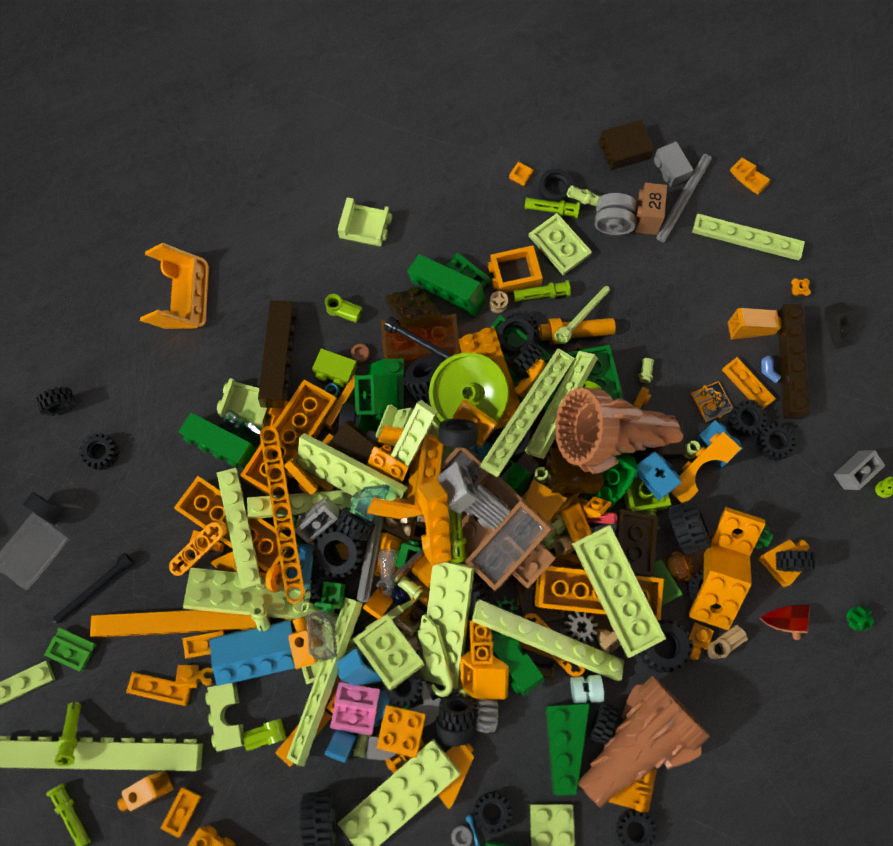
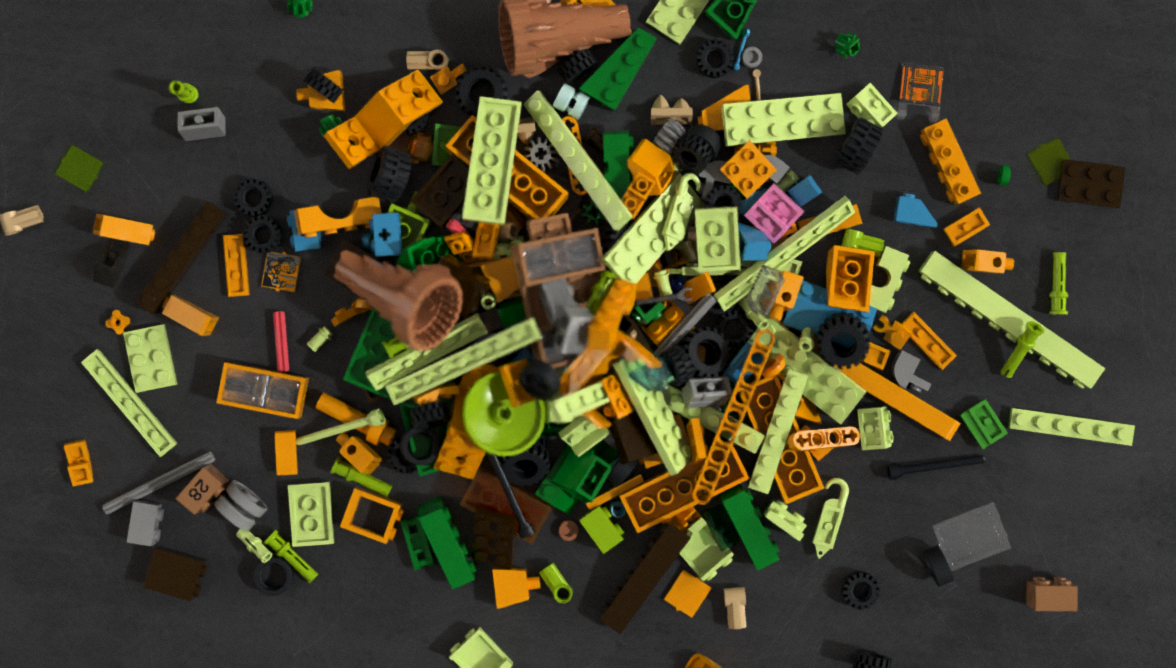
camera: 150 degrees left, 15 degrees up
(156, 491) = (830, 518): none -> yellowish green plate
(161, 586) = (875, 428): none -> yellowish green bracket
(164, 648) = (903, 370): none -> light grey brick
(192, 464) = (791, 523): none -> yellowish green plate
(194, 380) = (735, 602): none -> tan piece
(217, 627) = (847, 356): none -> black tyre
(236, 793) = (913, 212): none -> dark azure slope
(238, 365) = (687, 593): none -> light orange piece
(255, 695) = (849, 278): none -> light orange slope
(332, 596) = (735, 319): green bracket -> none
(374, 286) = (513, 585): none -> light orange torso
(387, 562) = (669, 316): clear cone -> none
(448, 824) = (756, 74): none -> tan hinge
(499, 298) = (406, 497): tan wheel -> none
(506, 732) = (662, 112): none -> tan tile
(521, 173) = (296, 612): light orange tile -> none
(556, 304) = (364, 458): none -> light orange torso
(610, 273) = (286, 452): none -> light orange slope
(661, 304) = (262, 390): none -> clear brick
(673, 350) = (281, 341): none -> coral axle
(691, 449) = (339, 240): yellowish green pin -> none
(757, 277) = (150, 358): none -> yellowish green plate
(767, 369) = (208, 267): medium blue arm -> none
(789, 619) = (360, 43): shield -> none
(852, 352) = (123, 229): none -> light orange slope

